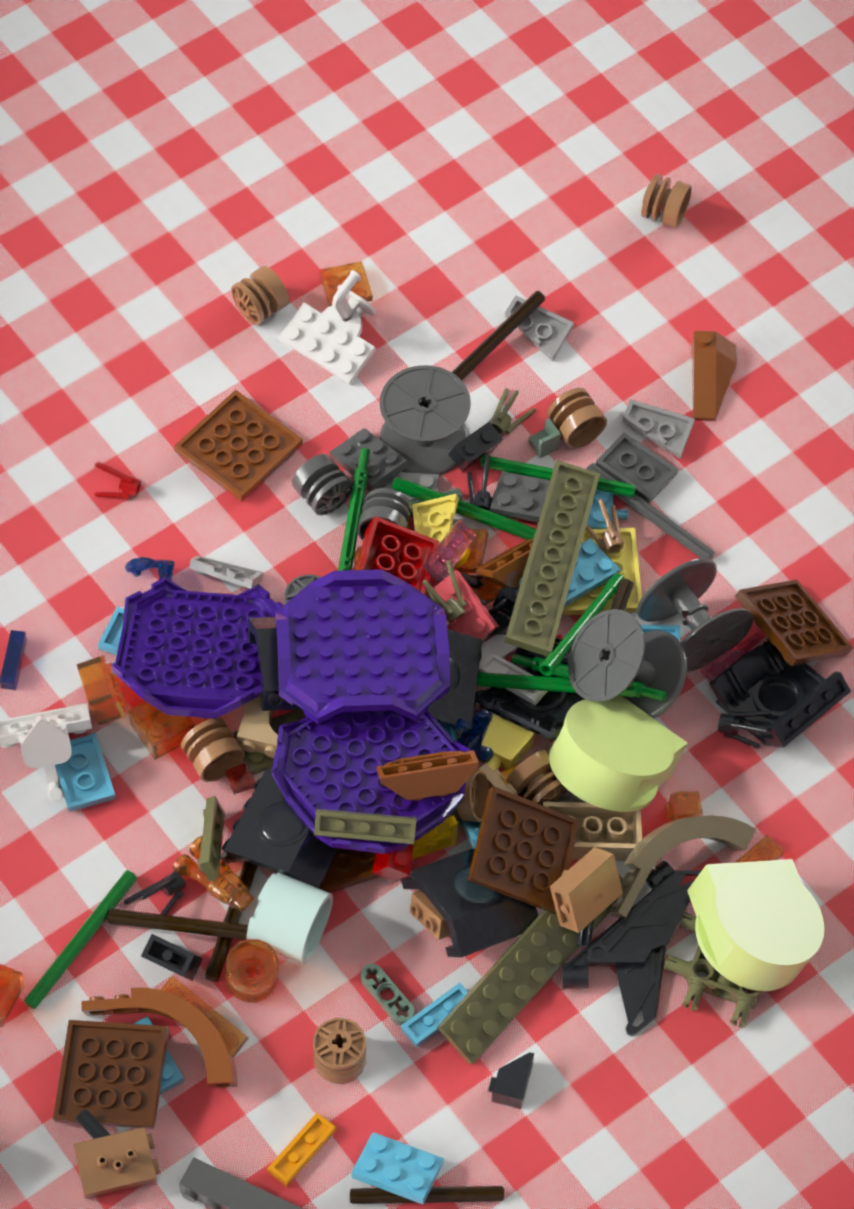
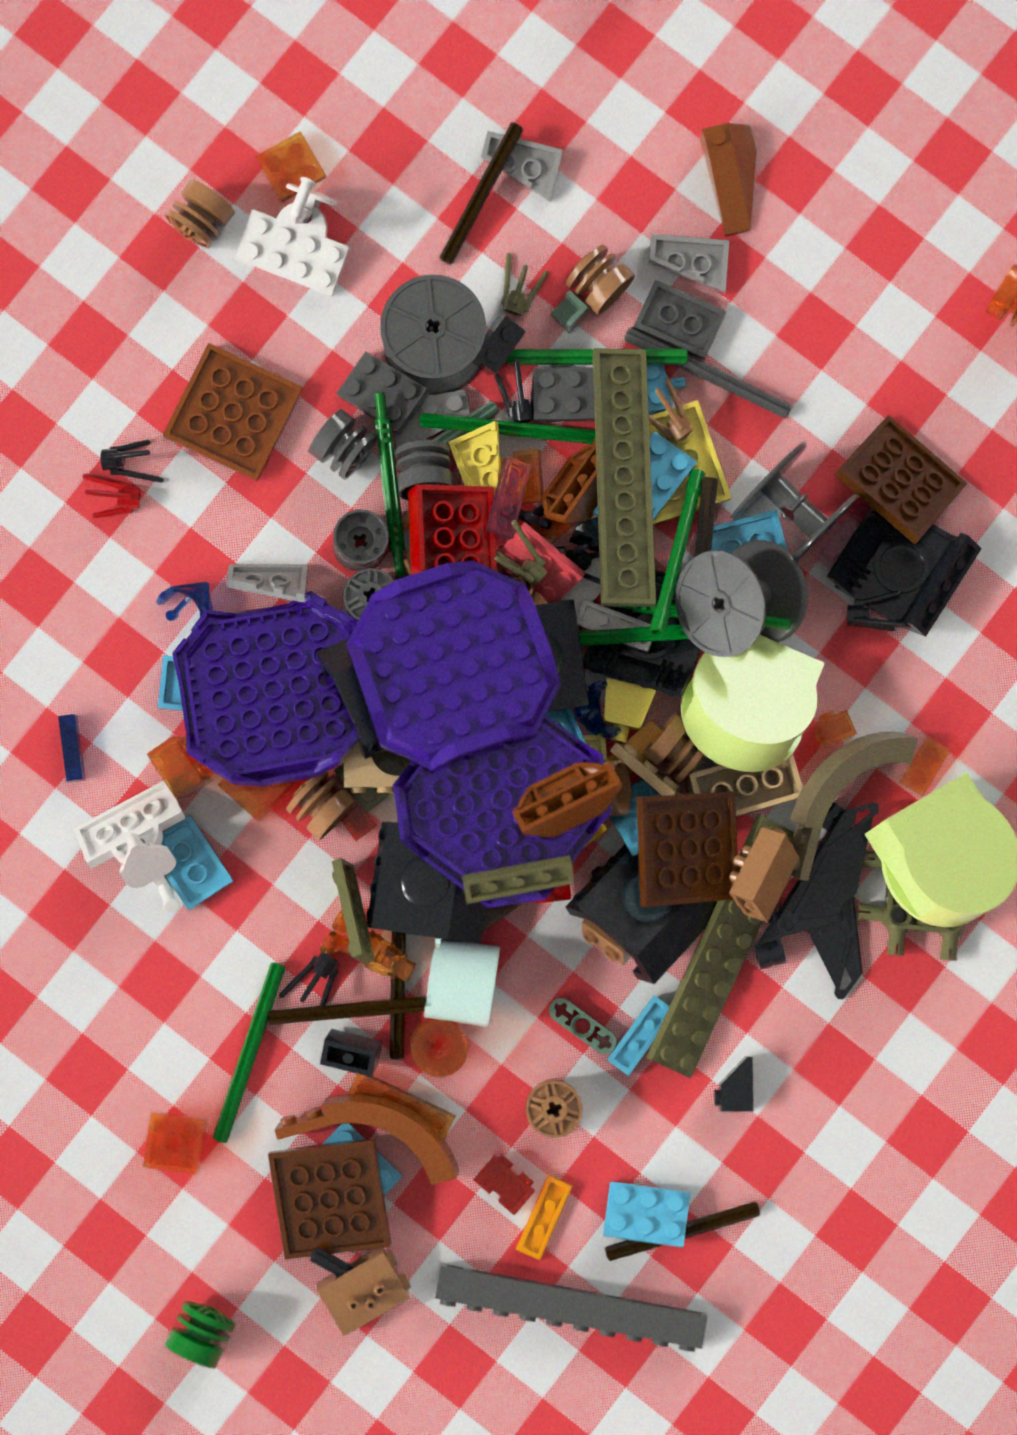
camera: 15 degrees left, 25 degrees up
(128, 455) = (115, 457): none -> black plant
(279, 1112) = (501, 1178): none -> clear red brick
(313, 553) = (360, 525): none -> dark grey wheel

